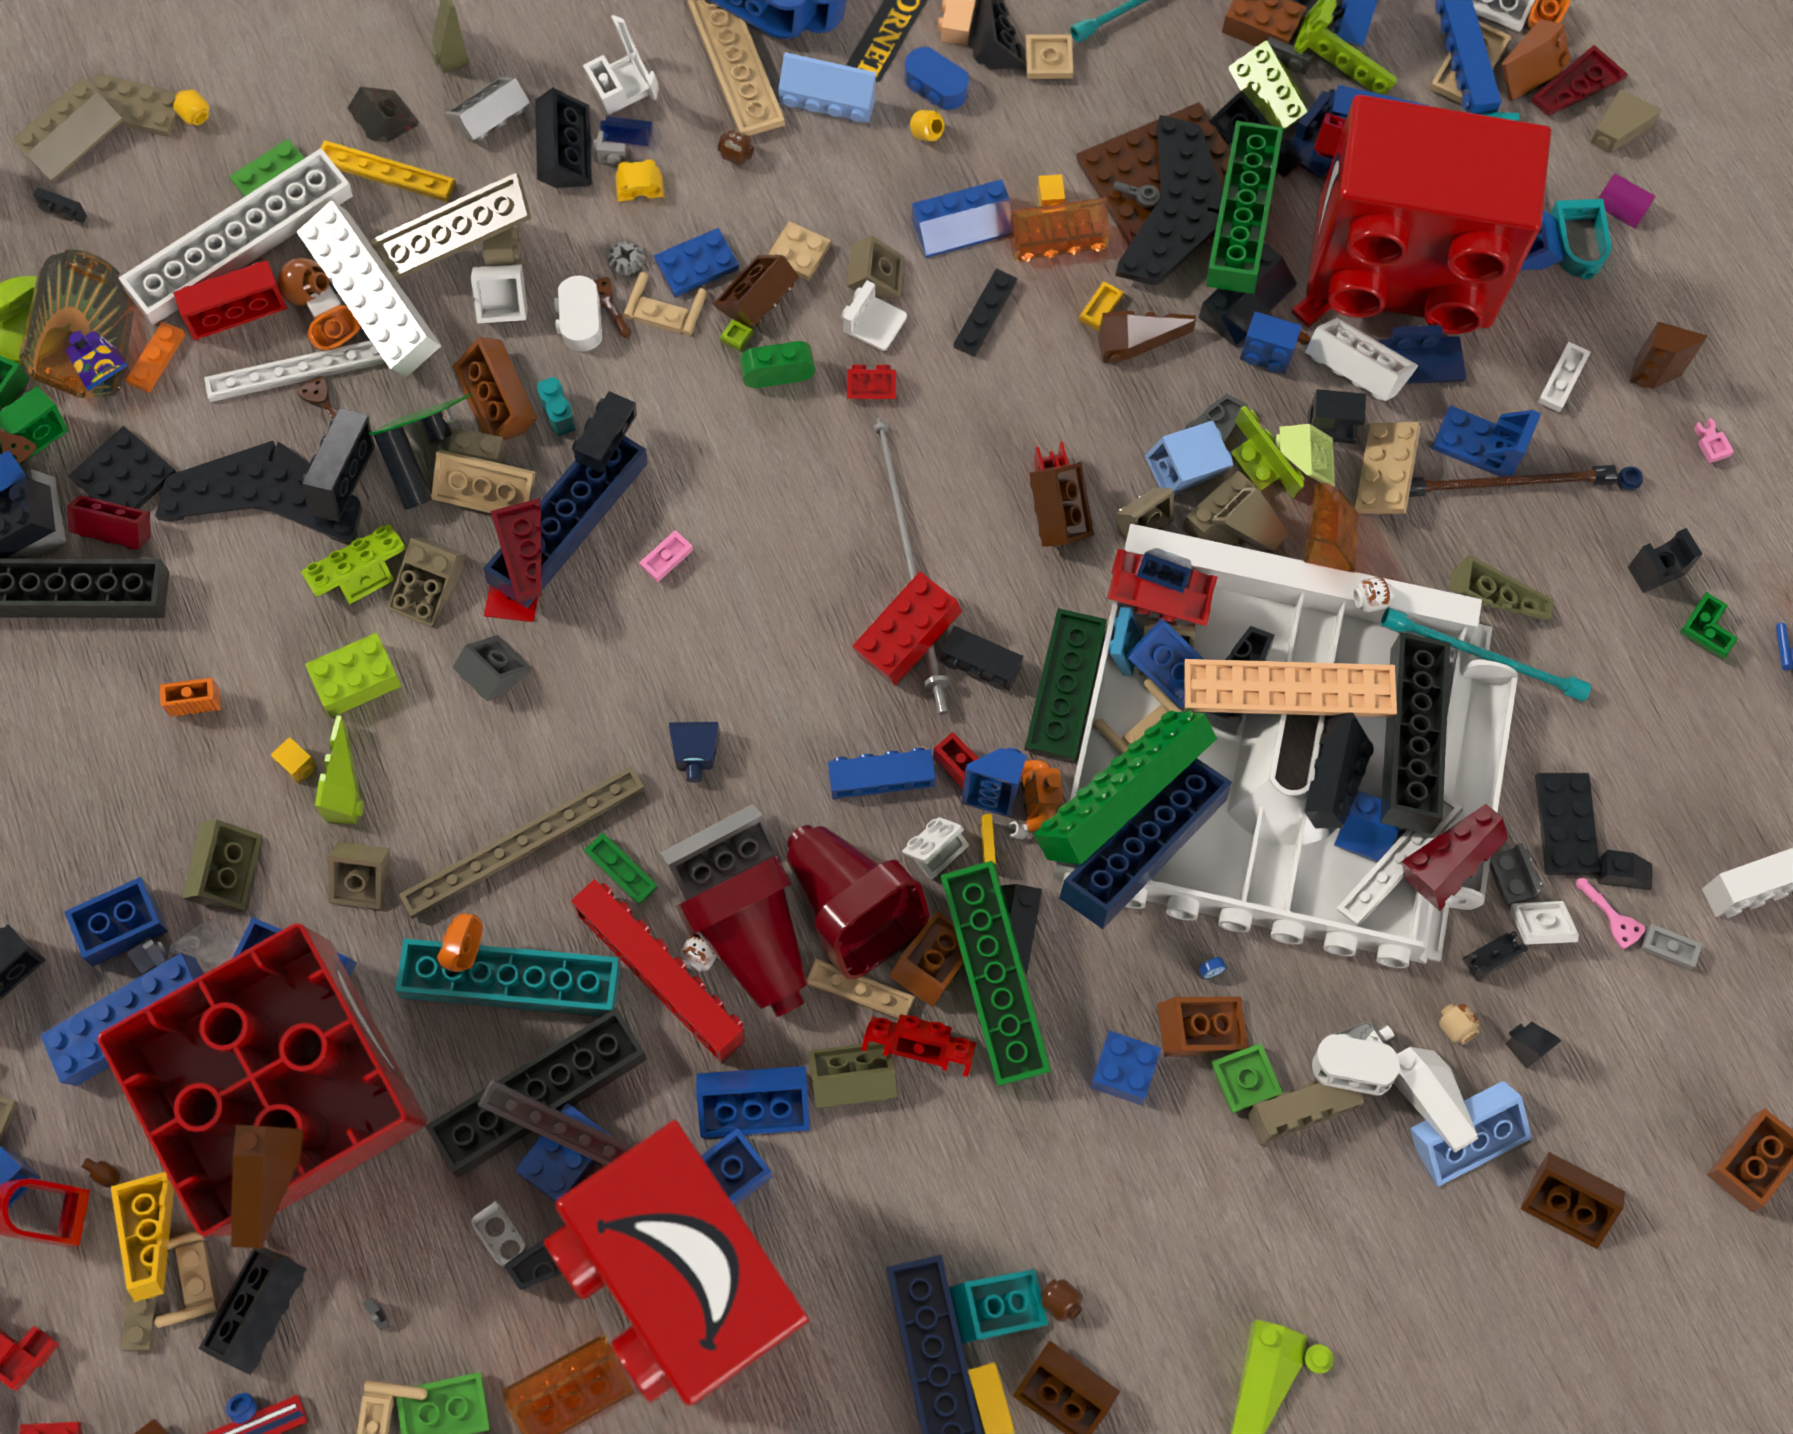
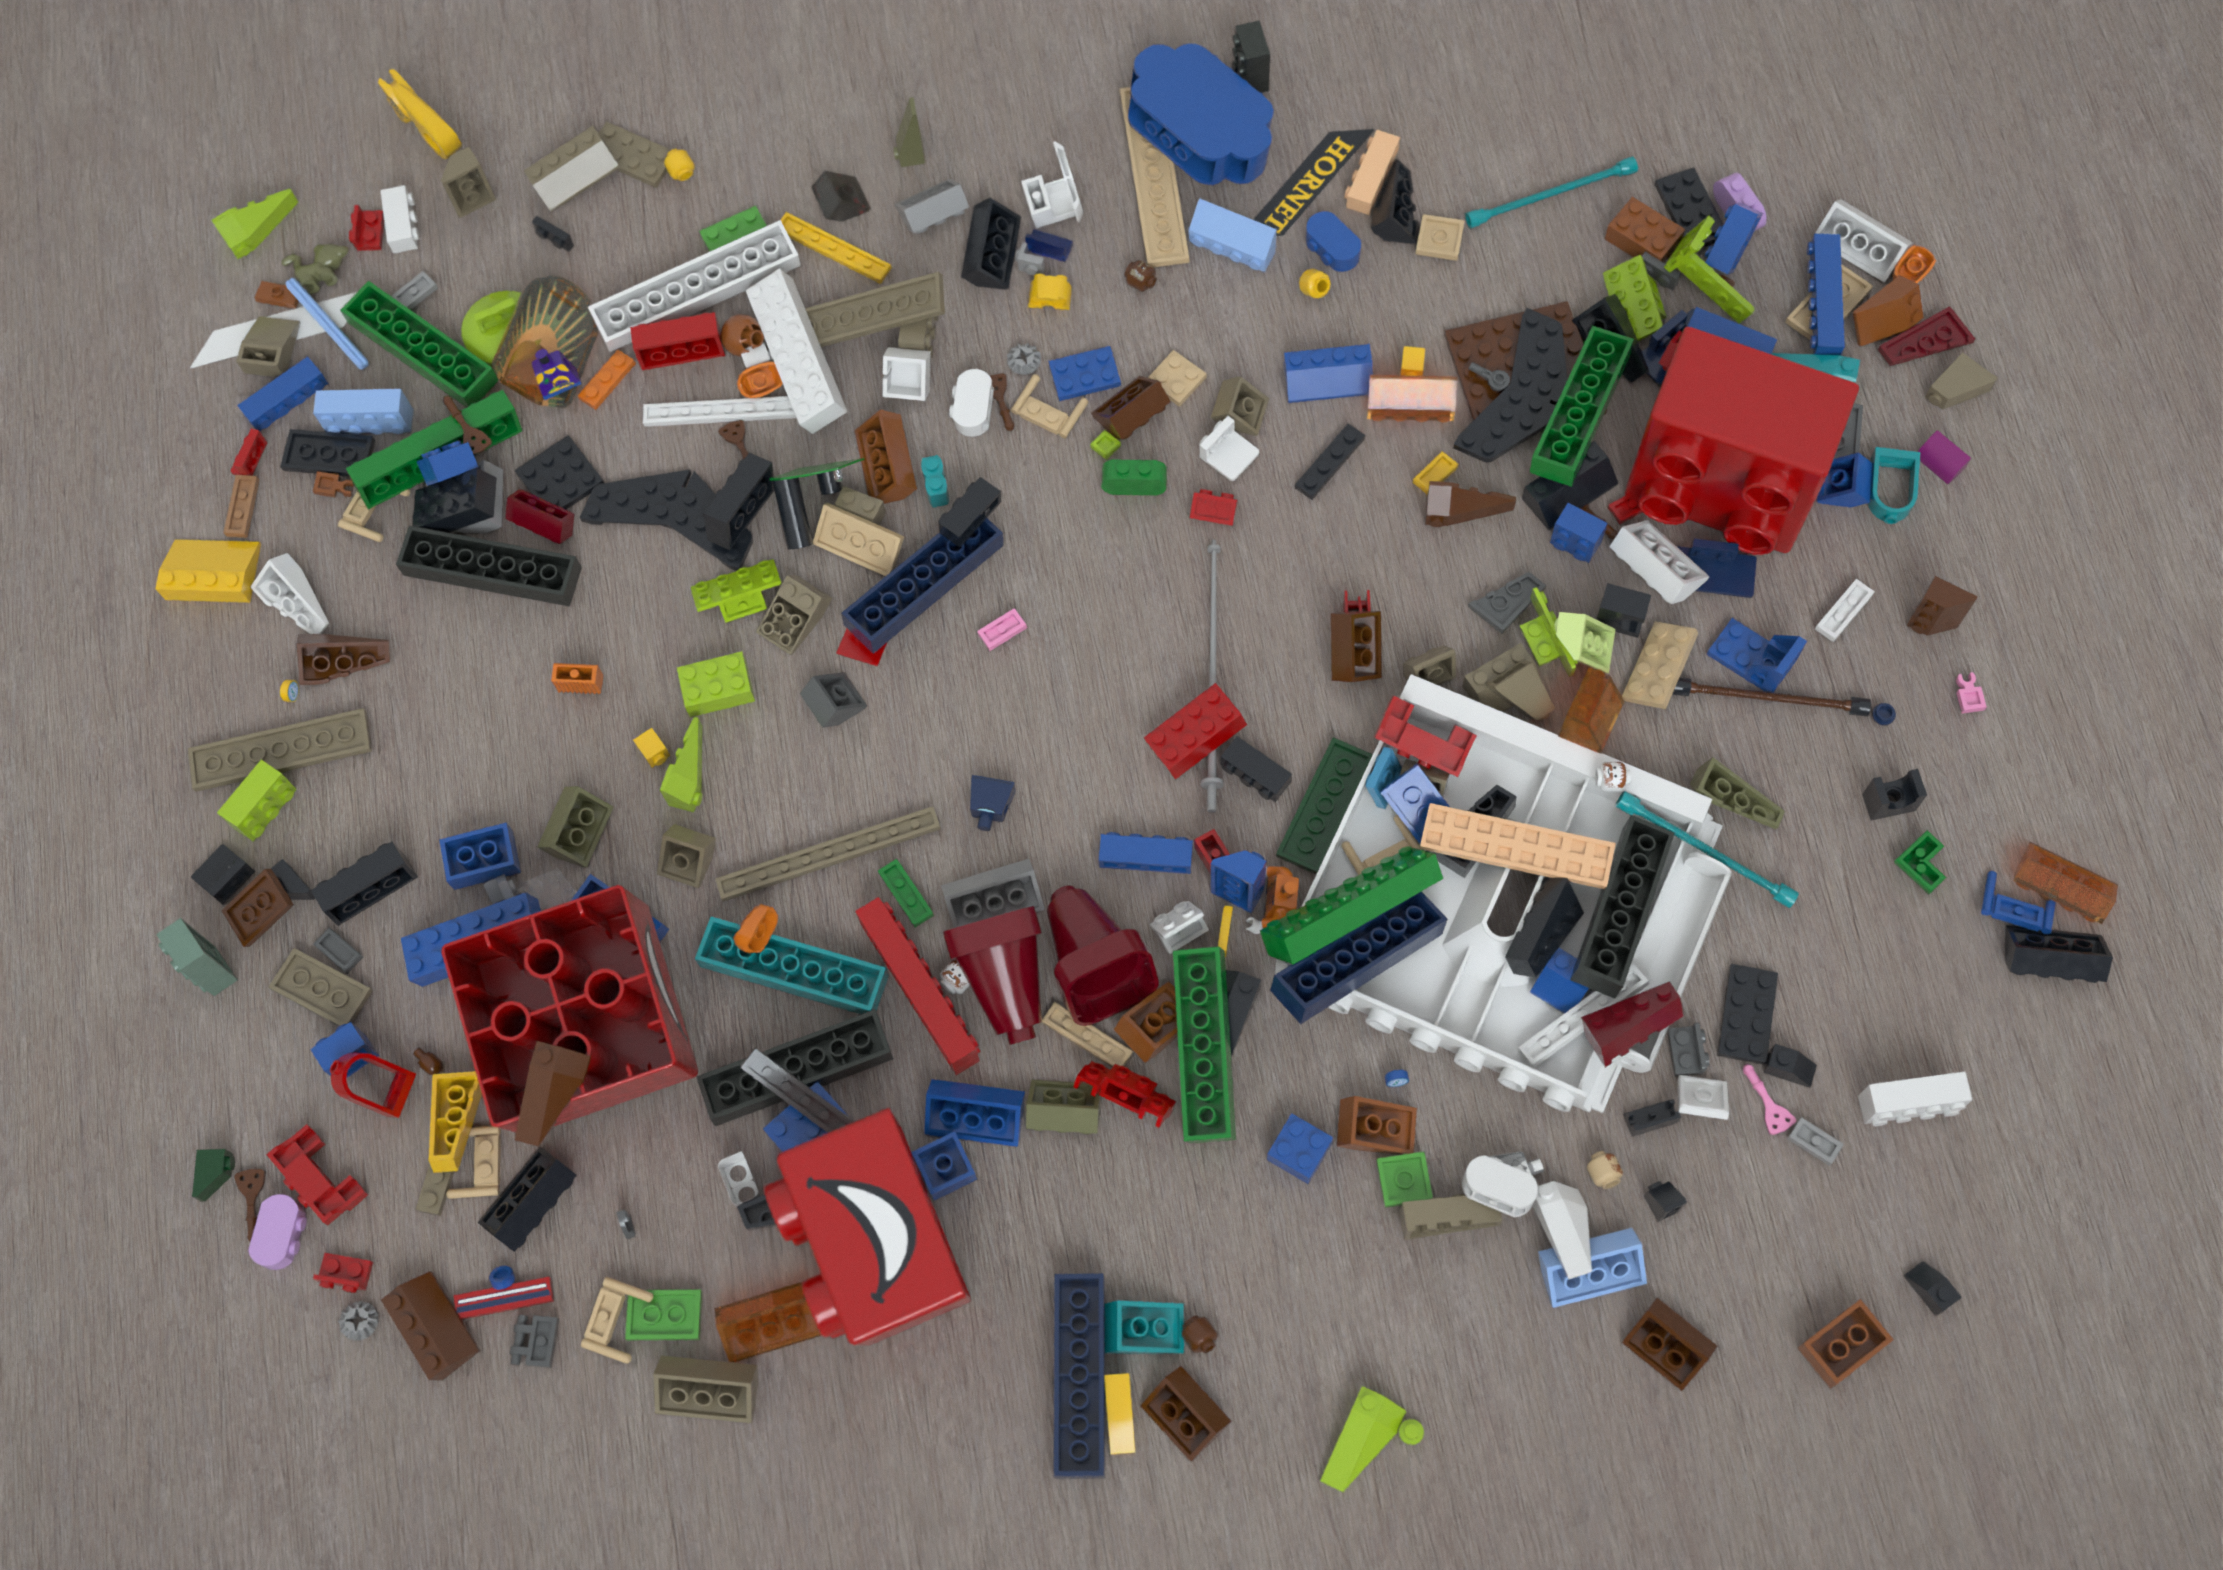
camera: 20 degrees right, 0 degrees up
(521, 545) = (877, 597): dark red wing -> none
(1165, 569) = (1429, 721): dark blue torso -> none
(1189, 457) = (1480, 624): light blue slope -> none

